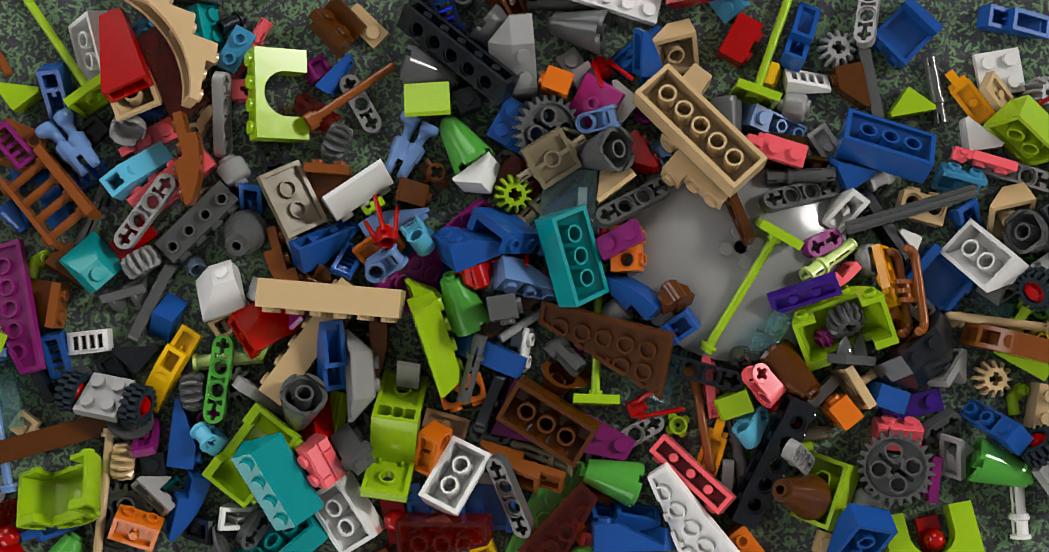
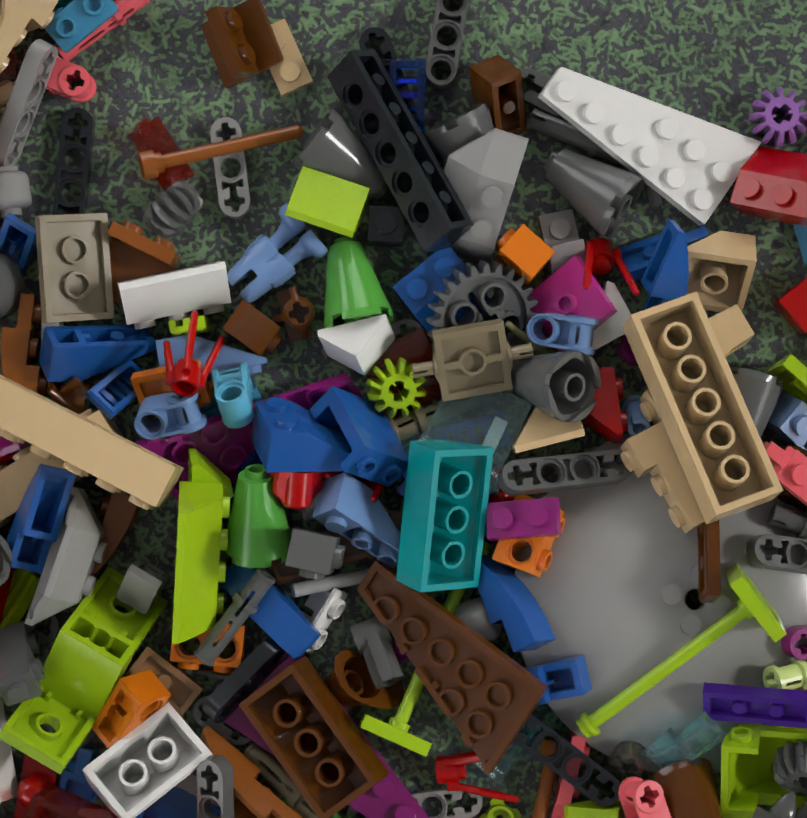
camera: 15 degrees right, 0 degrees up
(264, 122) = (78, 138): lime arch -> none
(316, 69) = (186, 92): magenta slope -> none
(331, 81) = (199, 119): blue slope -> none
(674, 296) = (568, 633): reddish brown piece -> none
(823, 337) = (761, 779): magenta plate -> none

